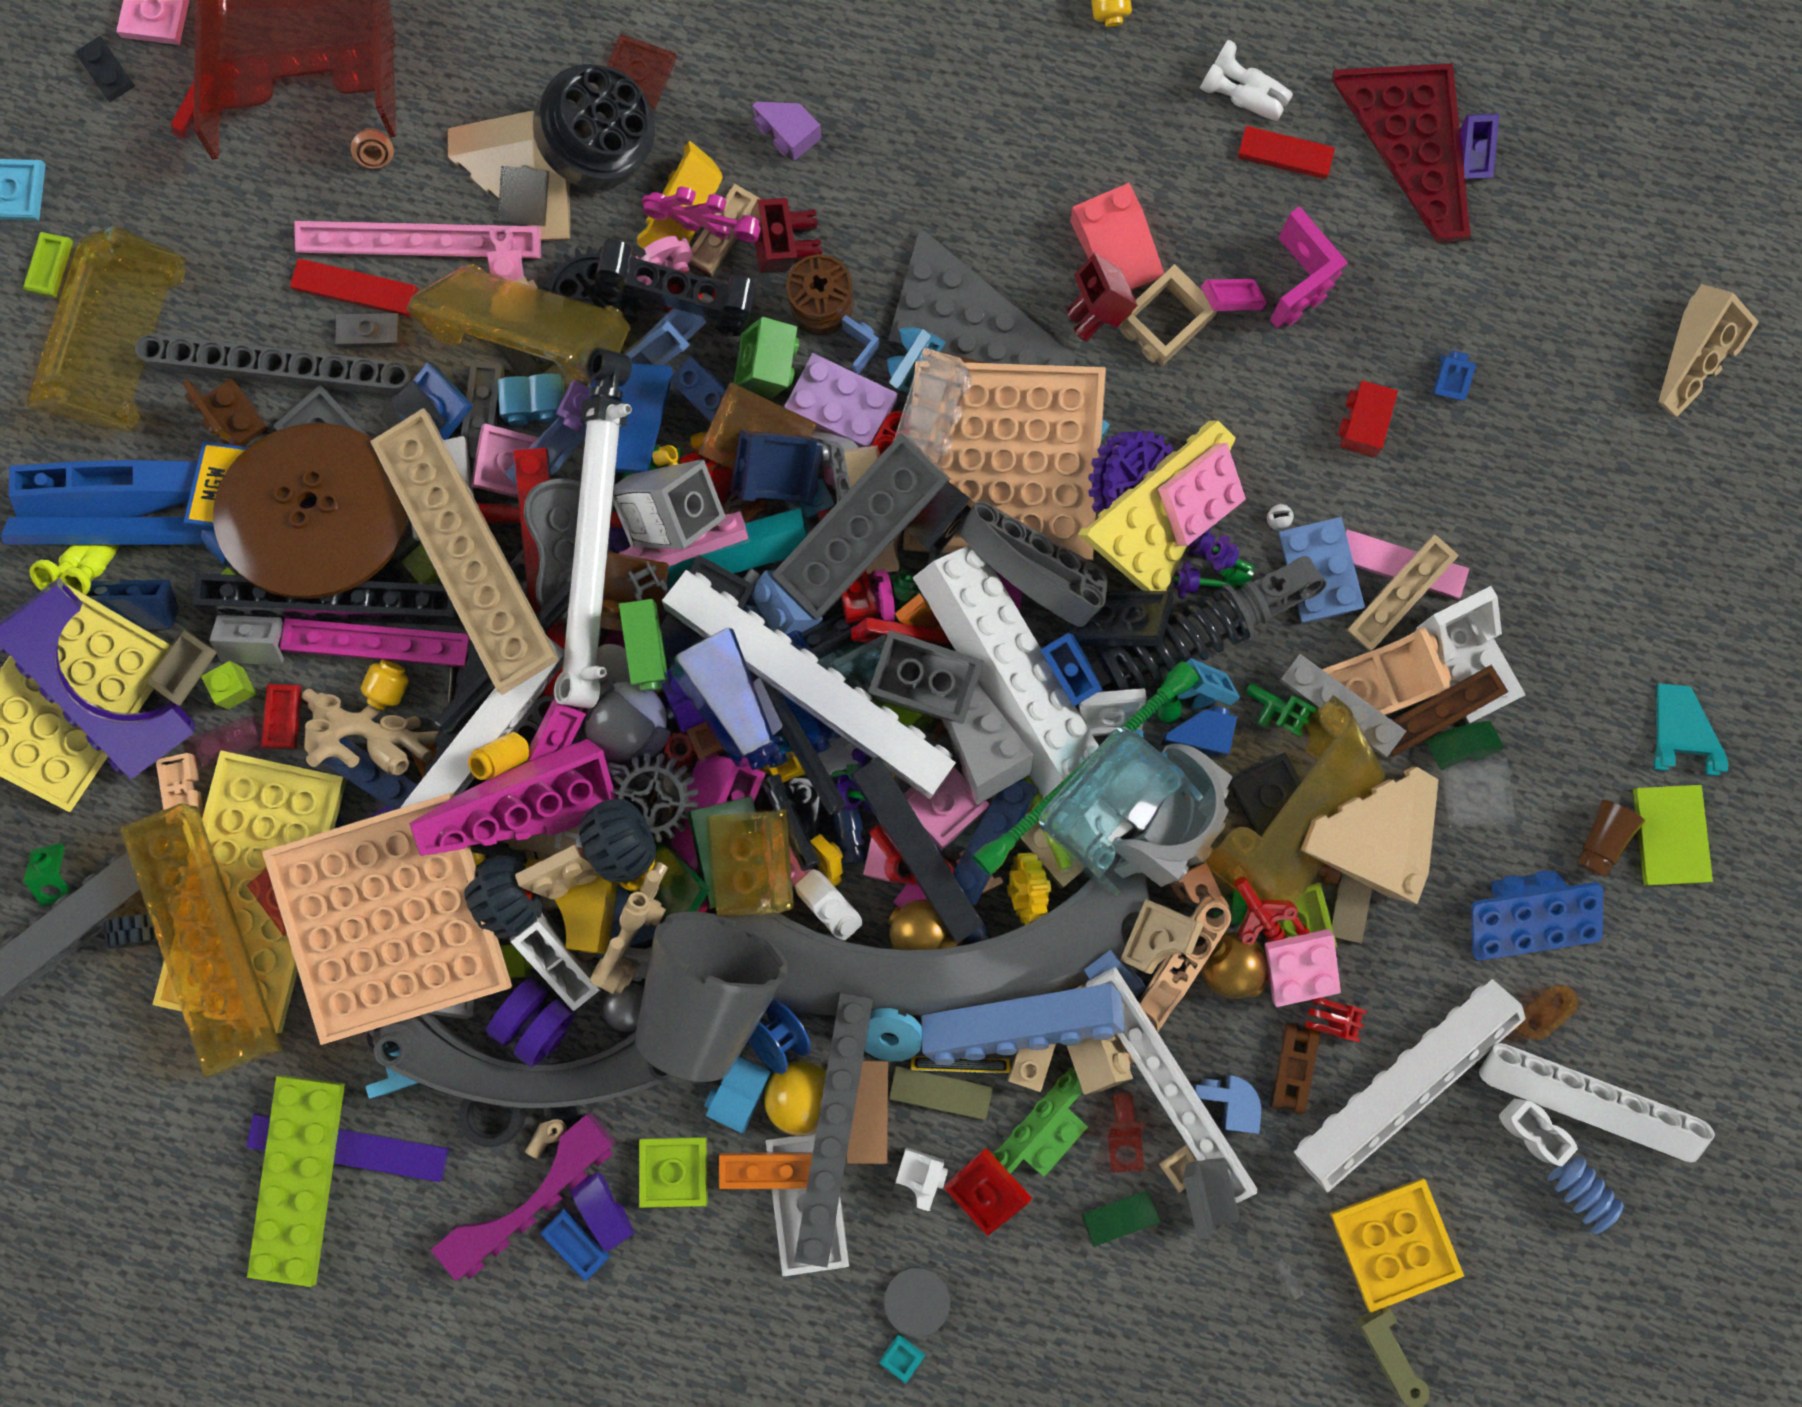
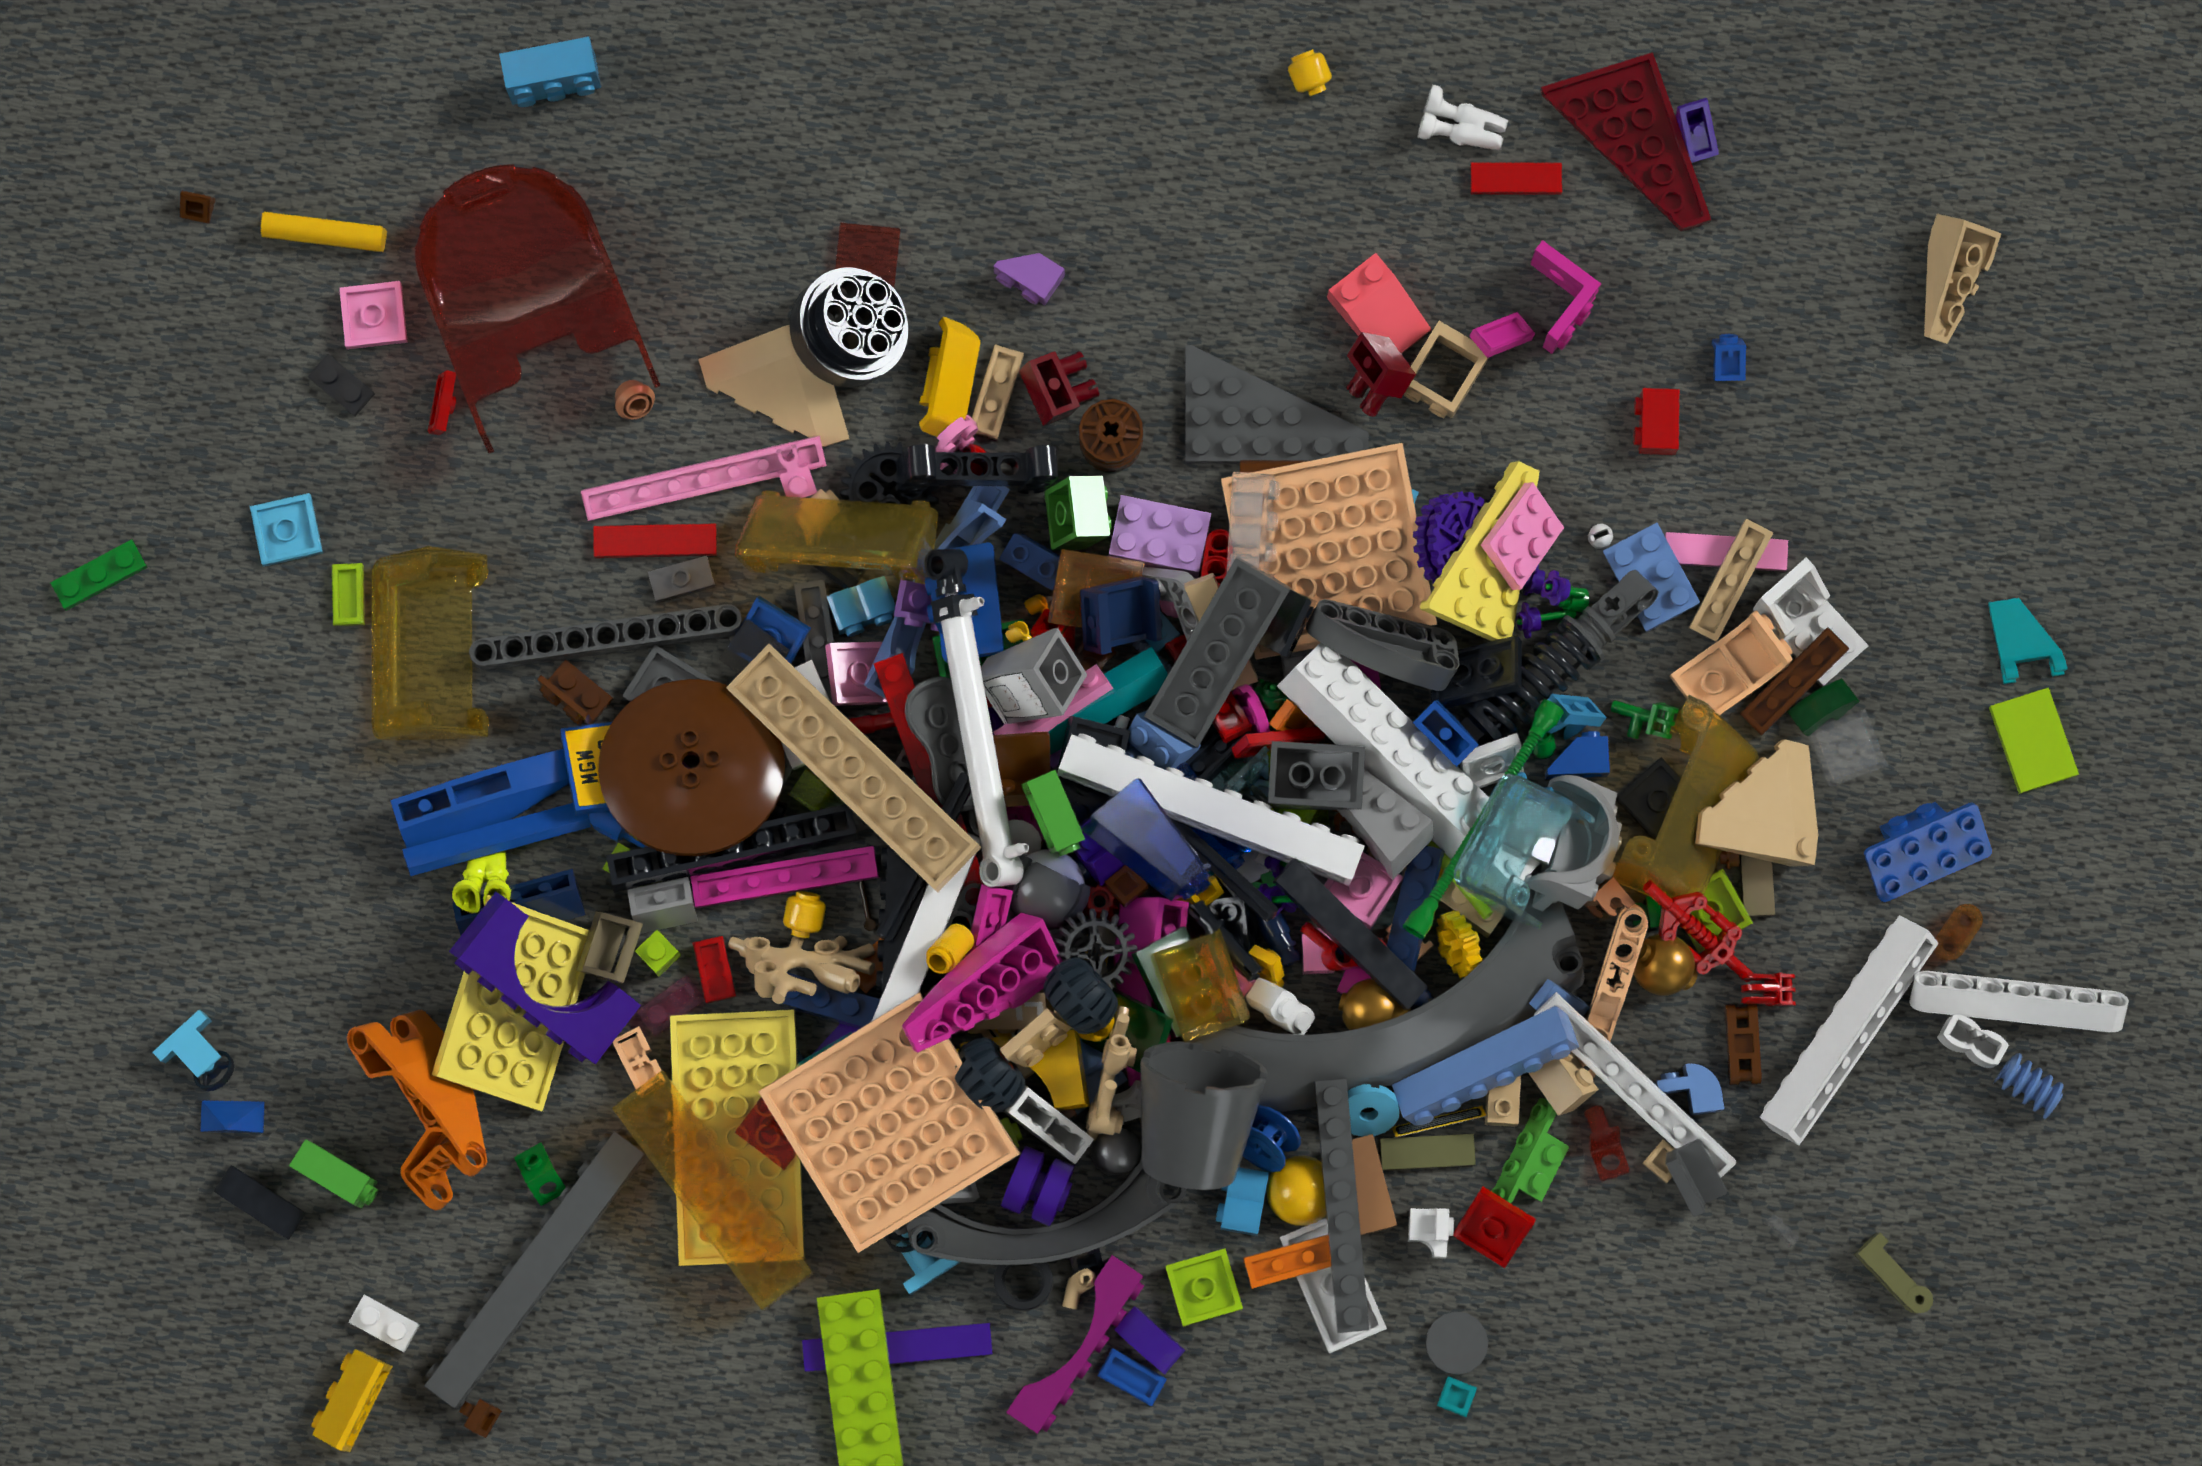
camera: 20 degrees left, 0 degrees up
(129, 932) = (645, 1201): black bush -> none
(523, 195) = (795, 410): clear smoke piece -> none
(649, 570) = (1043, 750): dark grey piece -> none
(693, 216) = (967, 391): dark pink plant -> none
(866, 336) = (1161, 461): medium blue bracket -> none
(903, 367) = (1222, 463): dark azure tile -> none
(1120, 1218) = (1620, 1219): dark green slope -> none
(1158, 935) = (1587, 953): tan tile -> none
(1302, 967) = (1725, 949): bright pink plate -> none
(1318, 686) = (1674, 689): light grey plate -> none
(1396, 1245) = (1873, 1176): yellow plate -> none
(1608, 837) = (1974, 758): reddish brown plant -> none

